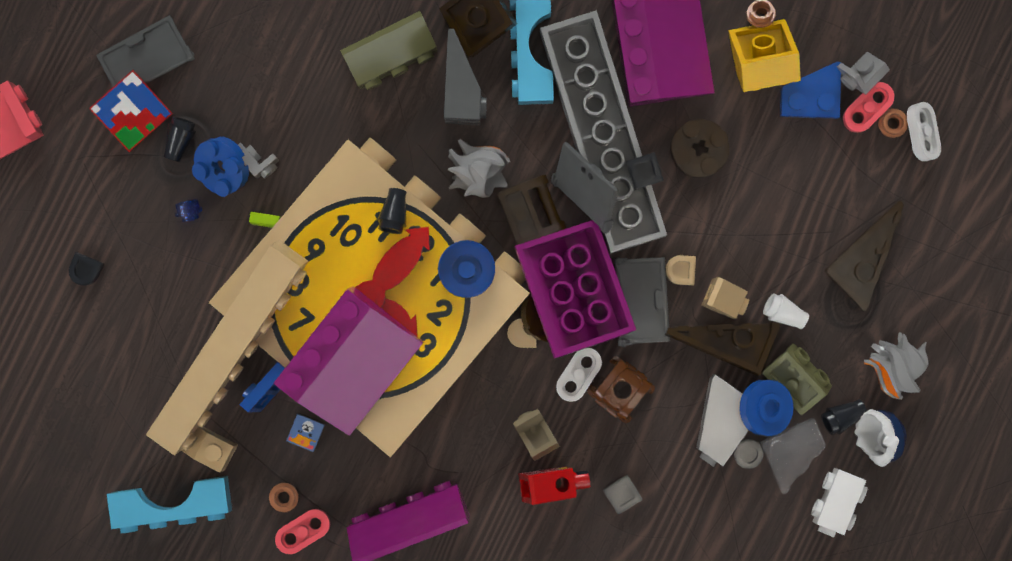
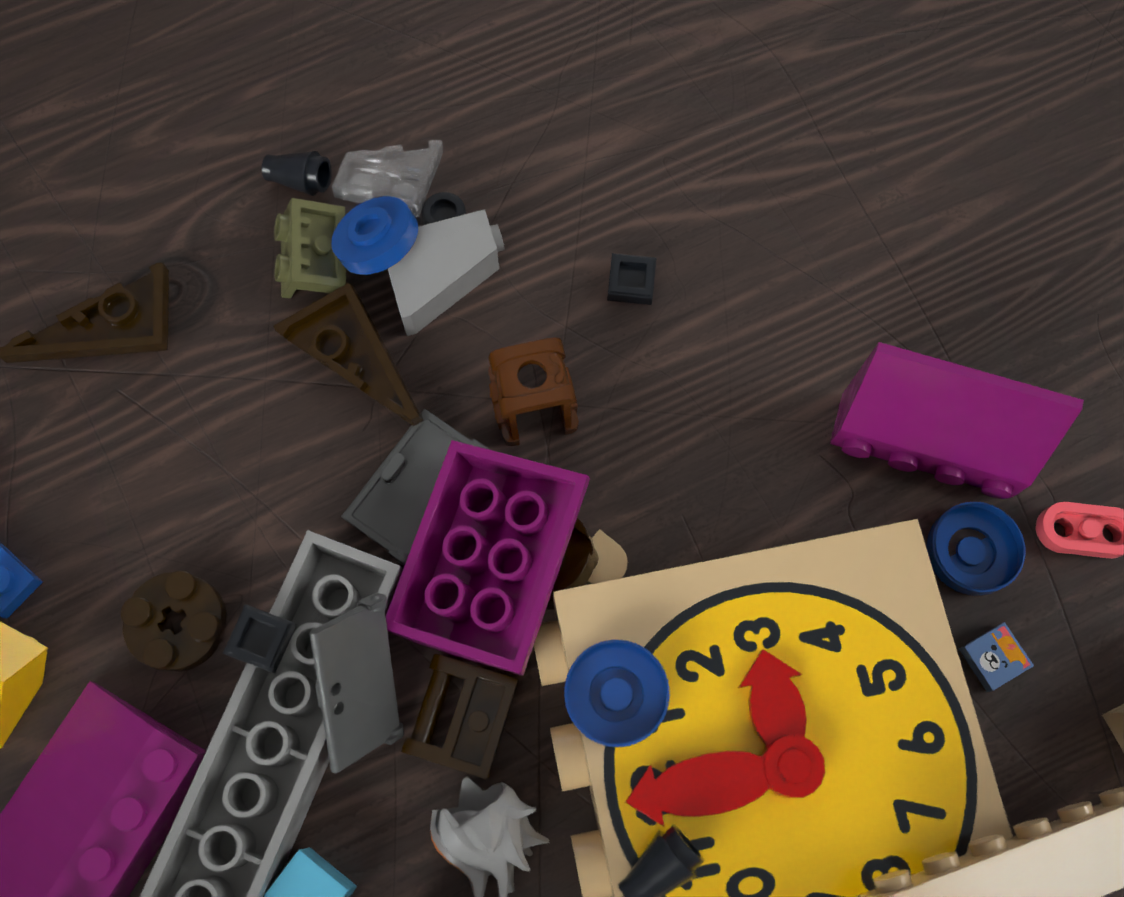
camera: 145 degrees left, 15 degrees down
(260, 395) = (1041, 754): blue wing -> none
(275, 501) = (1095, 585): nougat plate -> none
(342, 474) = (978, 565): none -> blue piece
(348, 361) = (894, 695): magenta slope -> none
(535, 434) = (685, 420): dark tan bracket -> none
(540, 485) = (716, 343): red torso -> none
(577, 373) = (569, 448): white plate -> none
(681, 270) = (334, 484): tan tile -> none
(725, 298) = (310, 405): tan slope -> none
(783, 311) = (256, 338): white cone -> none
(838, 503) = (386, 82): white brick -> none
(881, 436) = (274, 113): white hair -> none
(898, 366) = (180, 168): light grey hair -> none

